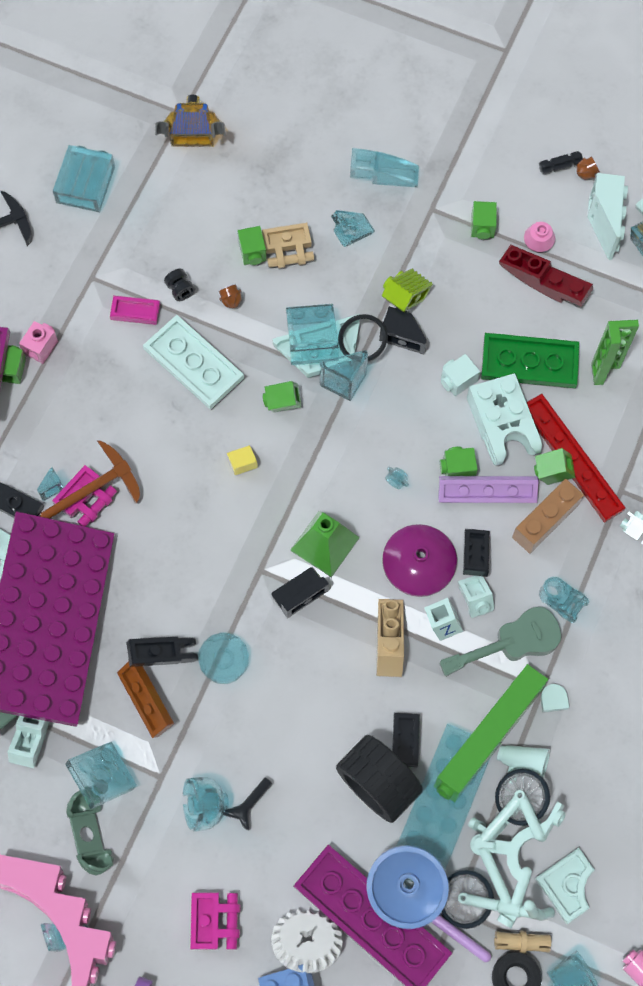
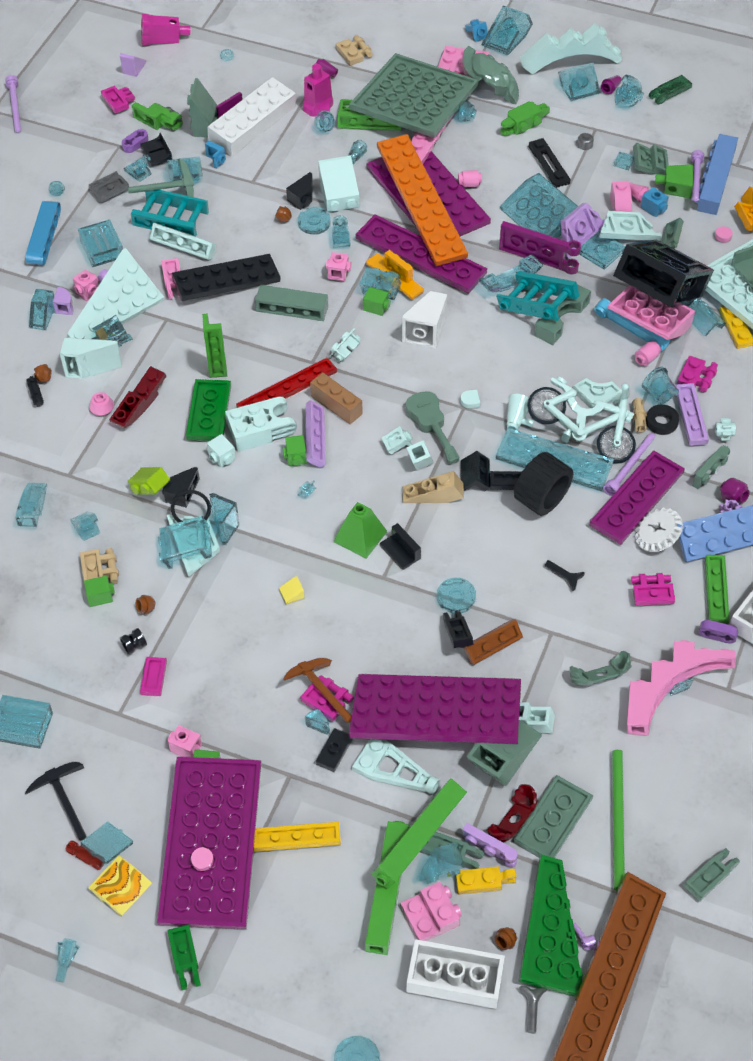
camera: 90 degrees left, 15 degrees down
(101, 775) = (557, 663): clear light blue plate -> none
(193, 362) = (205, 628): light aqua plate -> none
(204, 803) = (571, 597): clear light blue cylinder -> none
(282, 396) = (240, 561): bright green brick -> none
(405, 905) = (616, 466): medium blue dish -> none
(414, 574) = (368, 484): magenta dish -> none
(421, 696) = (475, 471): none -> black panel
(476, 552) = (365, 440): black plate -> none
(483, 219) = (85, 437): bright green brick -> none
(490, 734) = (502, 425): bright green brick -> none
(554, 466) = (298, 393): brick -> none
(564, 600) = (398, 392): clear light blue piece -> none

